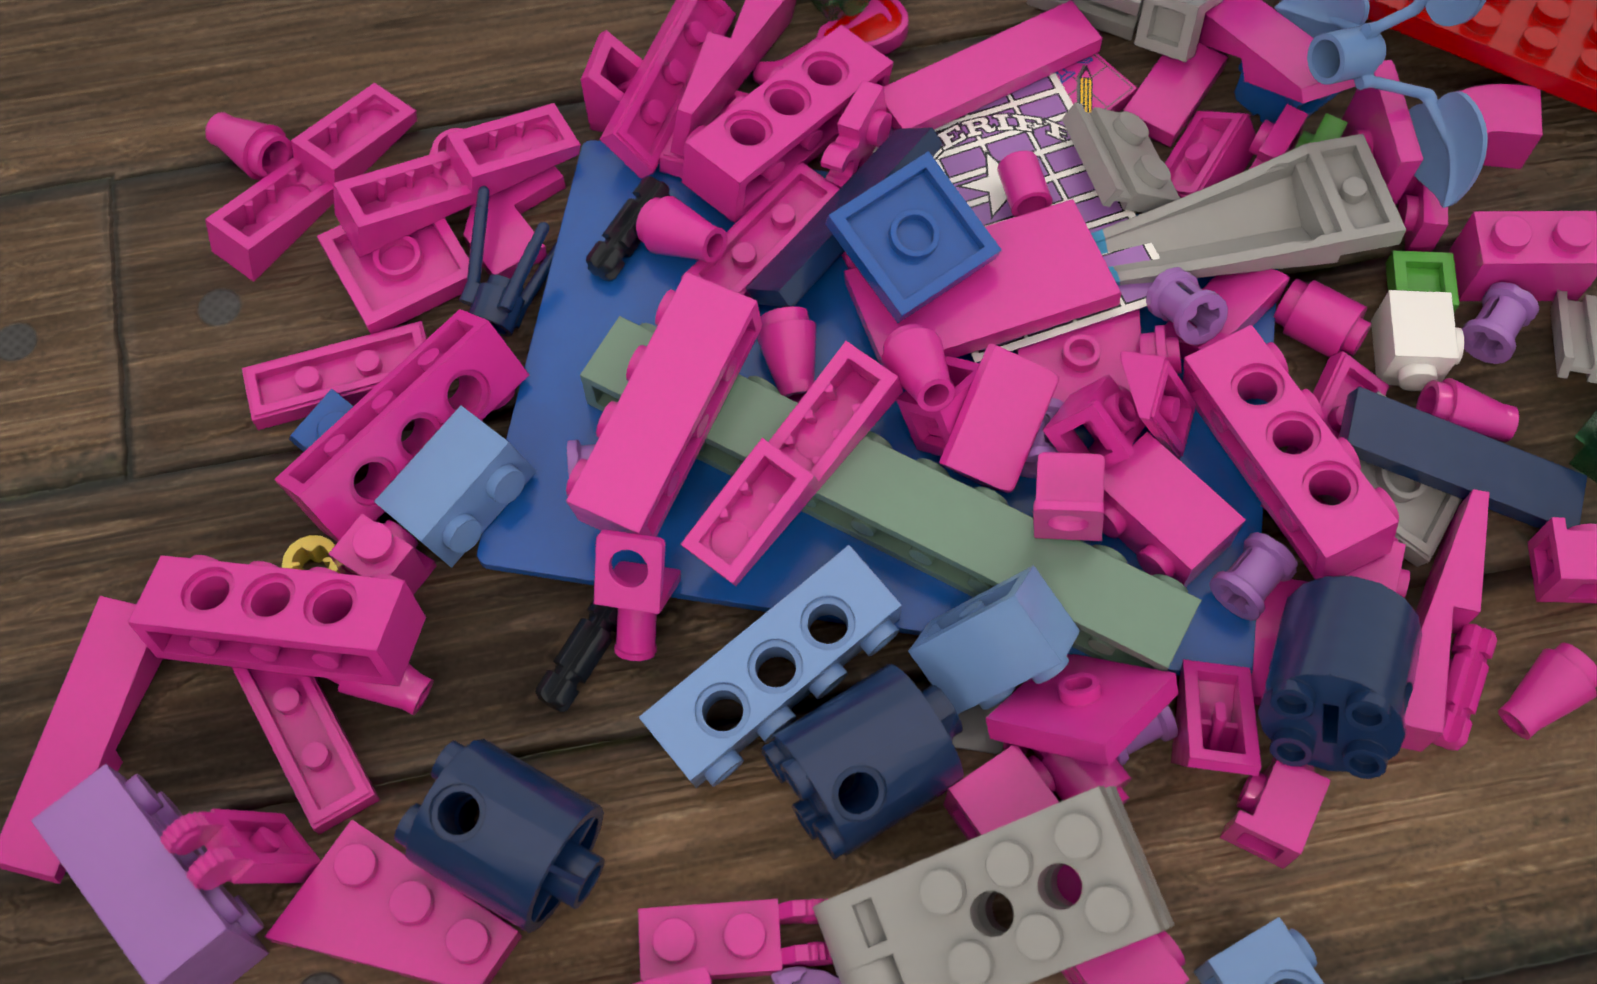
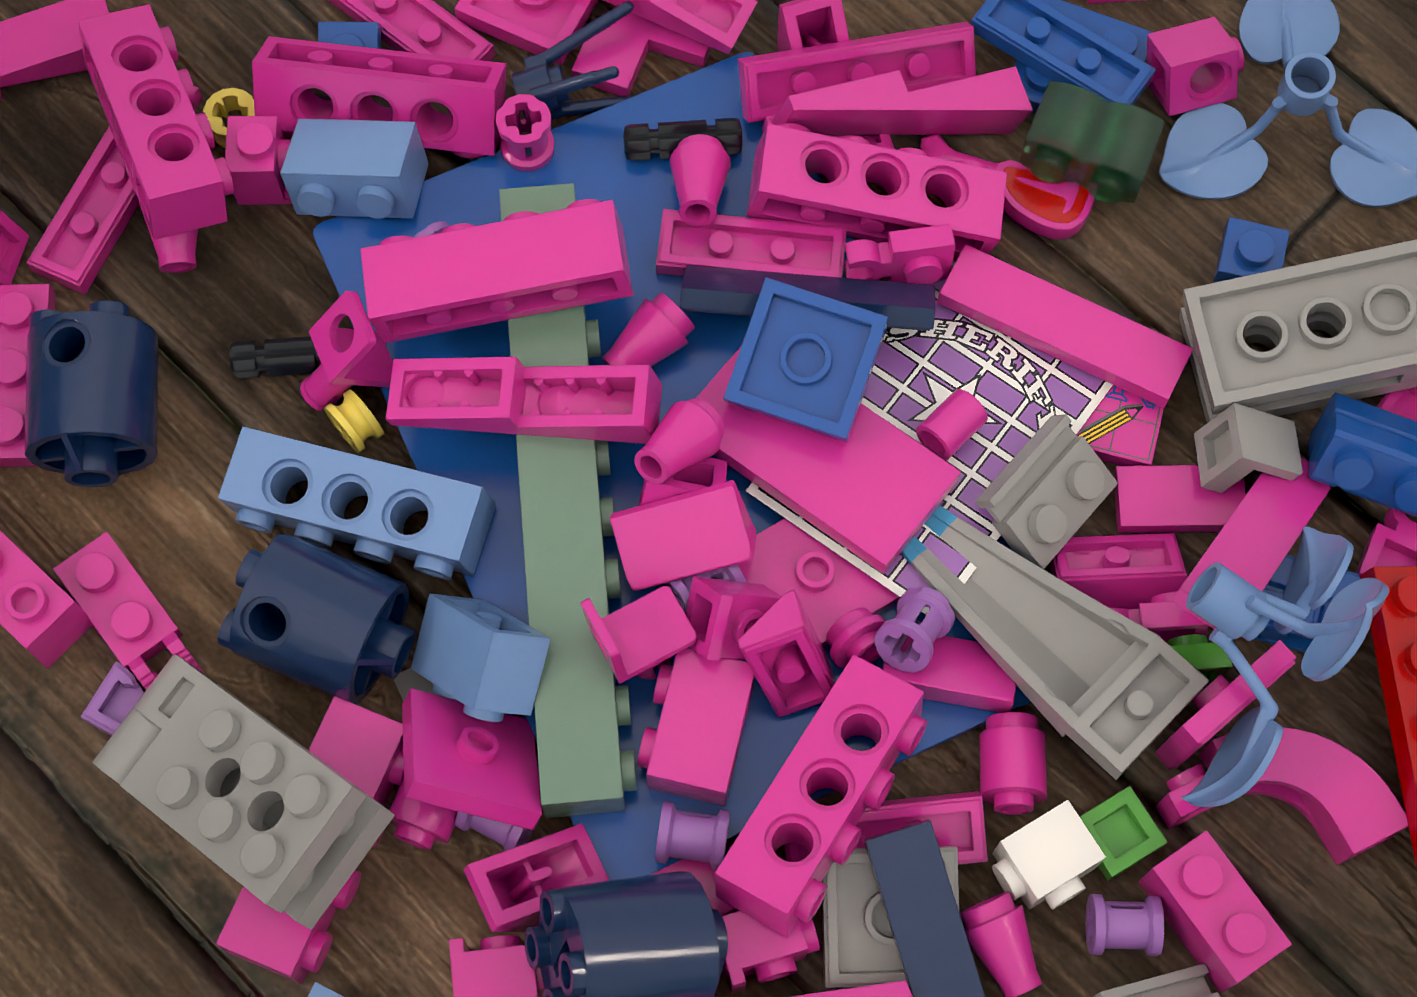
camera: 55 degrees right, 5 degrees up
(534, 333) = (537, 122): none -> dark pink bush
(687, 631) = (354, 421): none -> light yellow bush

